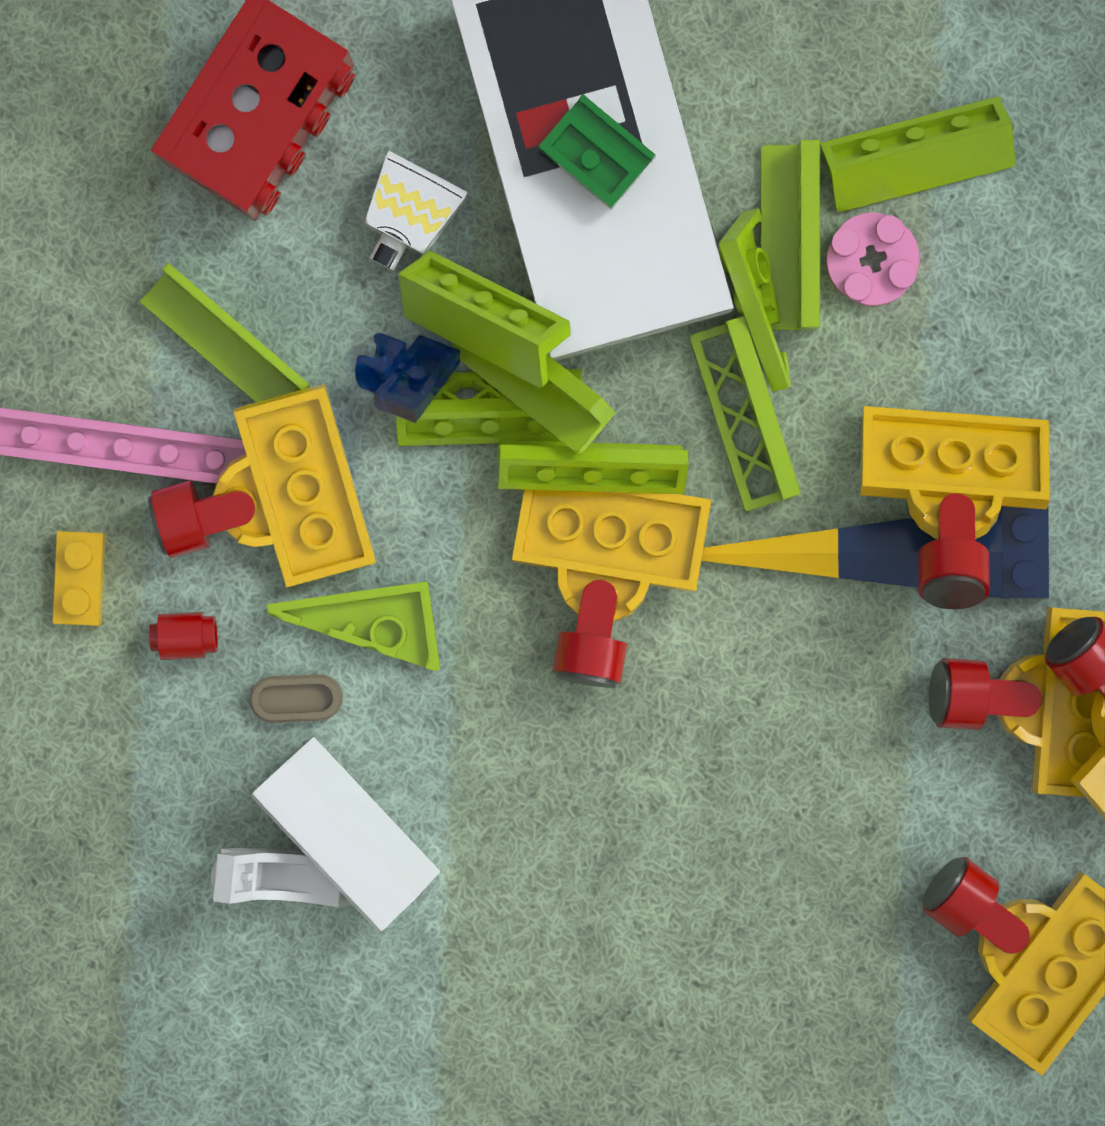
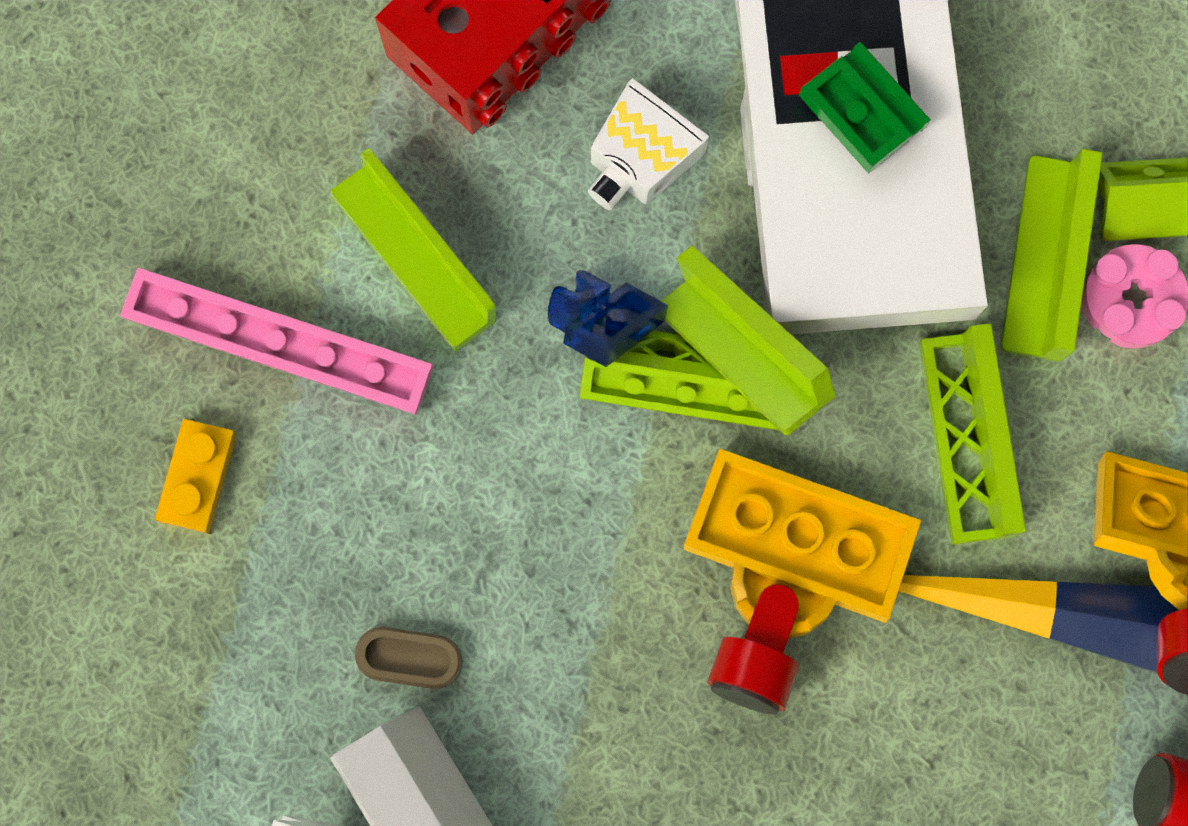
camera: 10 degrees right, 10 degrees down
(184, 635) = (297, 561): red brick -> none
(283, 492) = (441, 420): yellow plate -> none
(384, 619) = (522, 585): lime wing -> none
(481, 316) = (702, 269): lime panel -> none
(598, 469) = (794, 458): lime panel -> none
(755, 294) = (1006, 311): lime wing -> none

